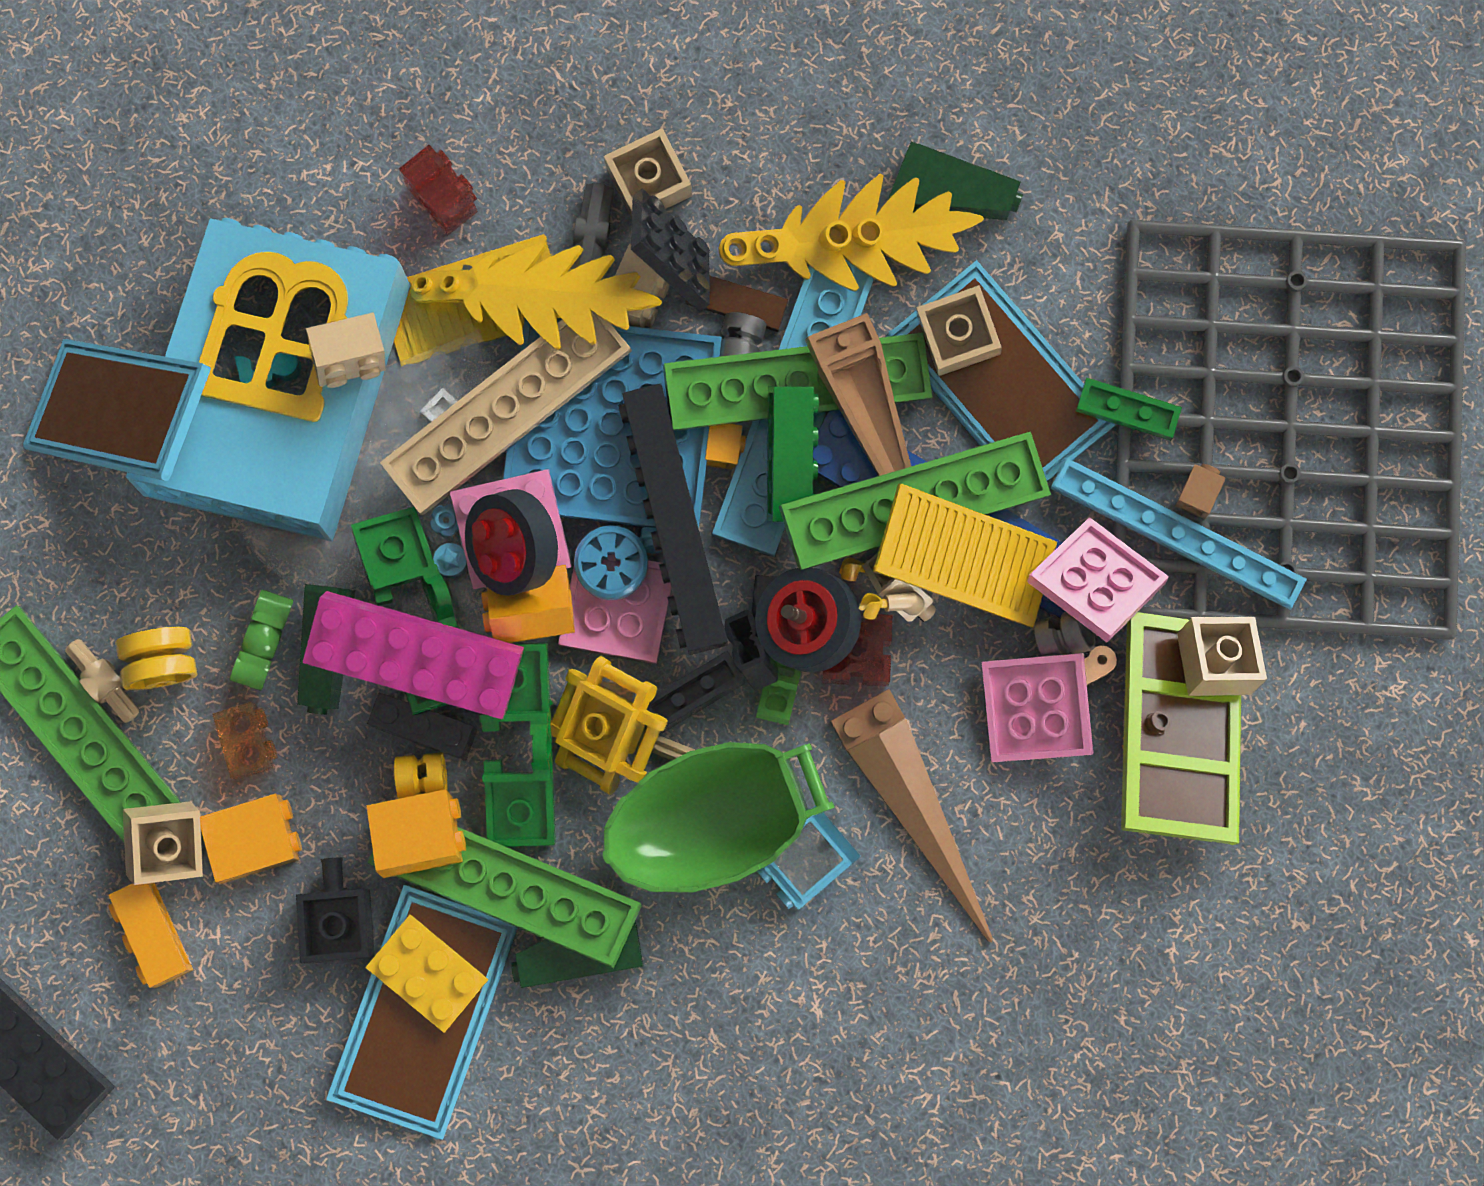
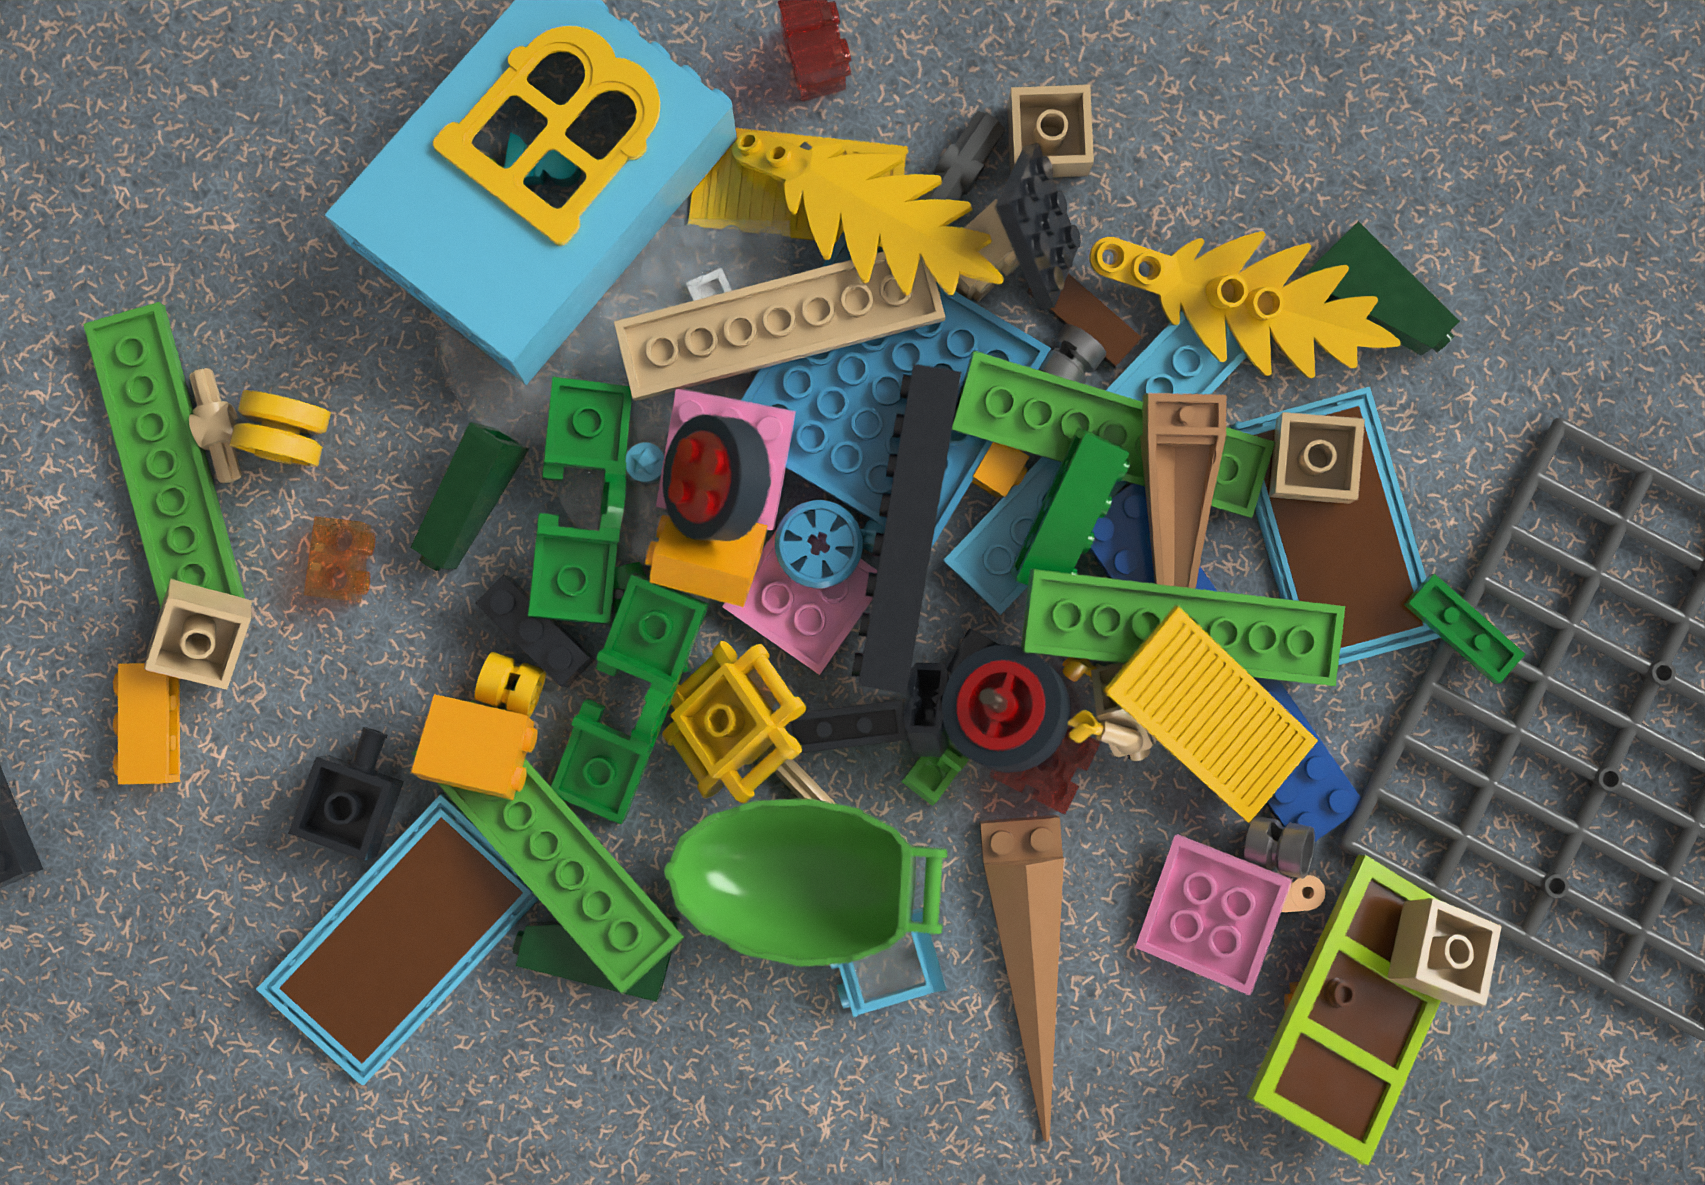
camera: 20 degrees right, 5 degrees up
(117, 408) = (353, 135): reddish brown door -> none
(250, 838) = (298, 669): light orange brick -> none
(261, 640) = (404, 458): bright green piece -> none
(346, 350) = (625, 180): tan brick -> none
(413, 654) = (552, 554): dark pink brick -> none
(427, 973) = (422, 902): yellow plate -> none
(437, 524) = (649, 416): medium azure plate -> none
(1097, 579) = (1345, 806): bright pink plate -> none
(1178, 533) = (1456, 792): medium azure tile -> none
(1200, 490) = (1504, 756): medium nougat brick -> none

